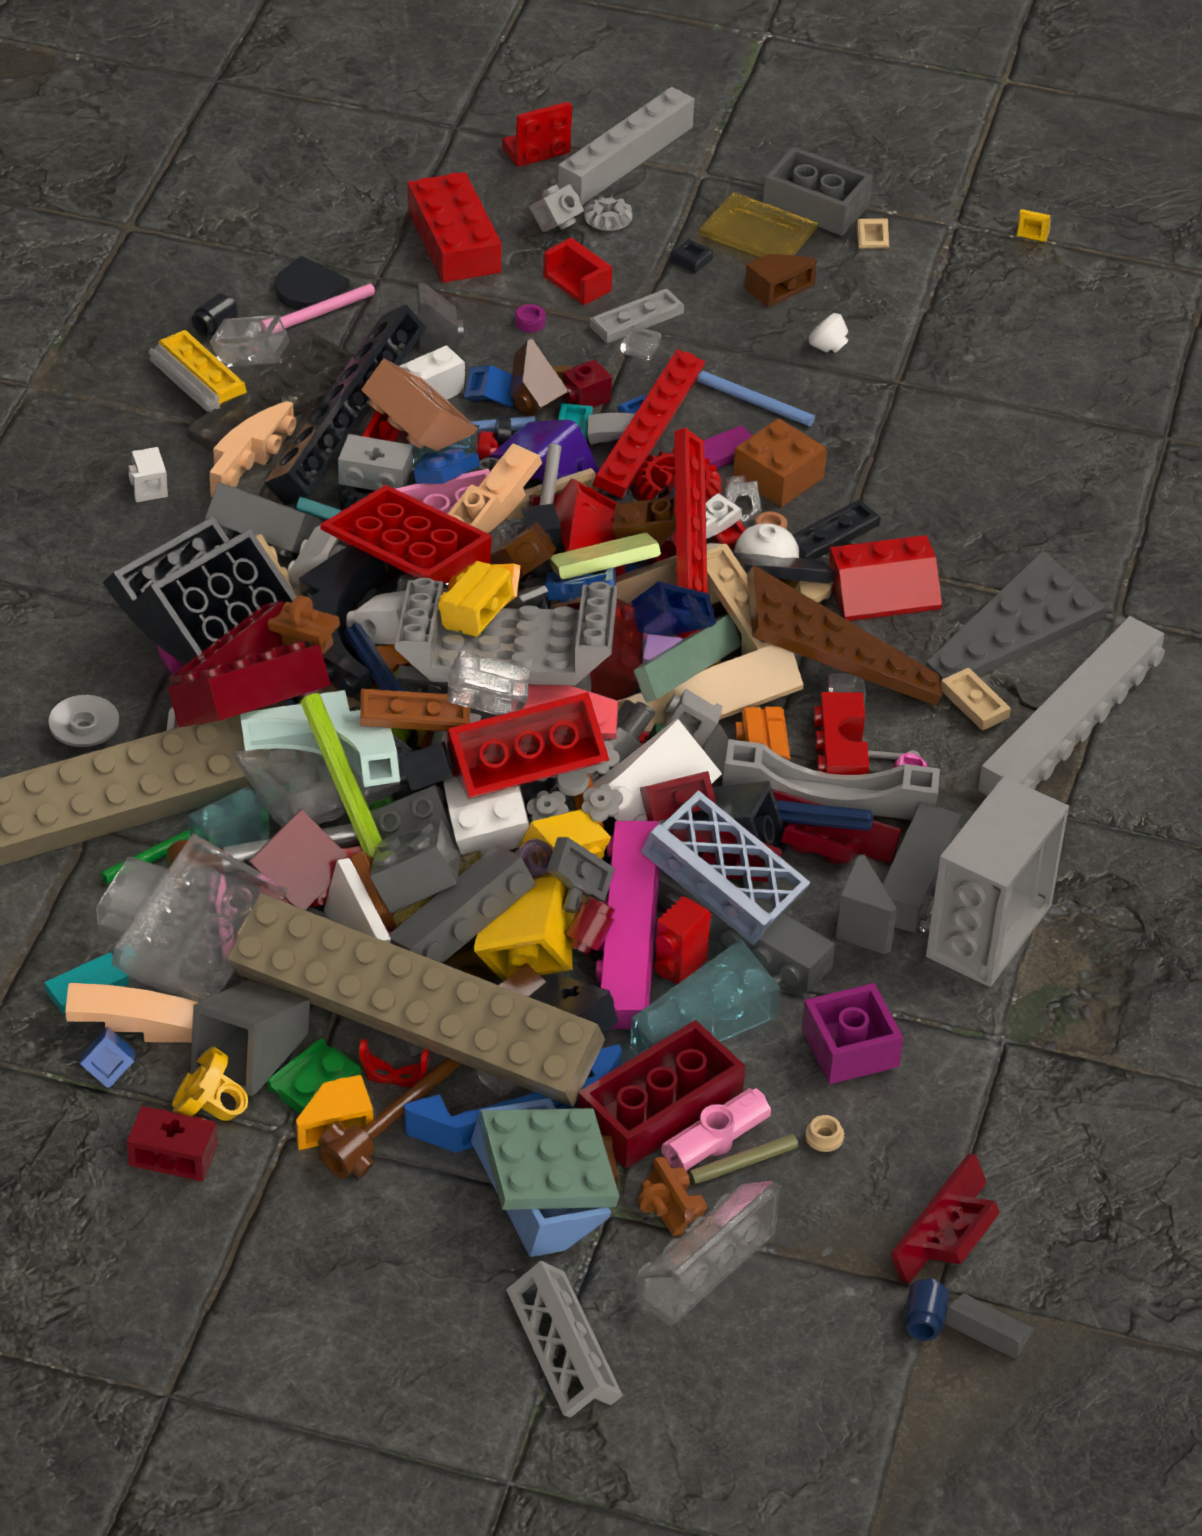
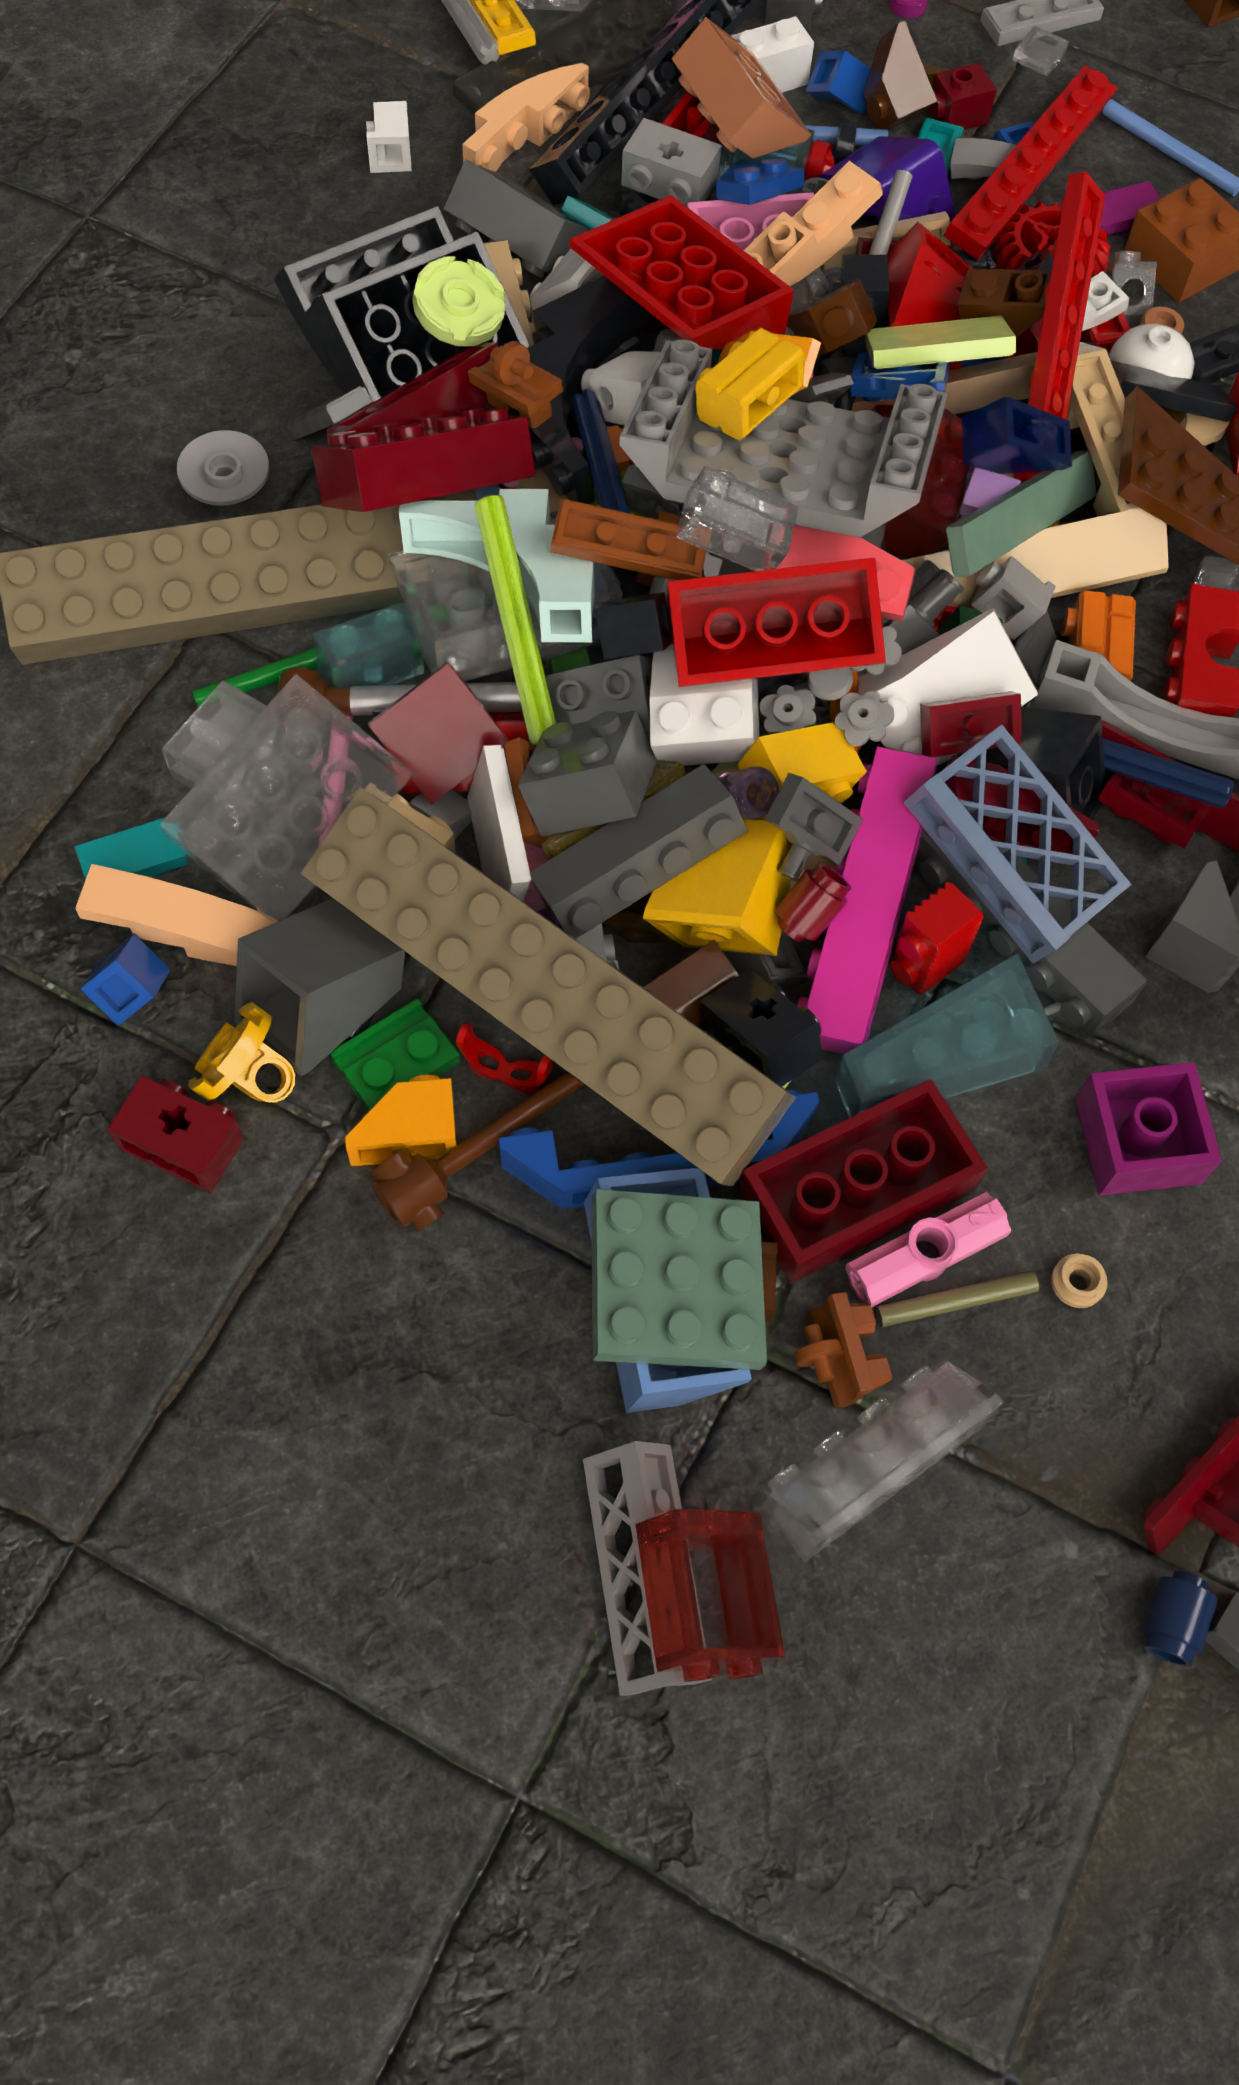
camera: 10 degrees right, 20 degrees up
(159, 670) = (328, 412): none -> dark grey tile
(248, 577) = (459, 301): none -> yellowish green tile
(585, 1313) = (743, 1584): none -> clear red window

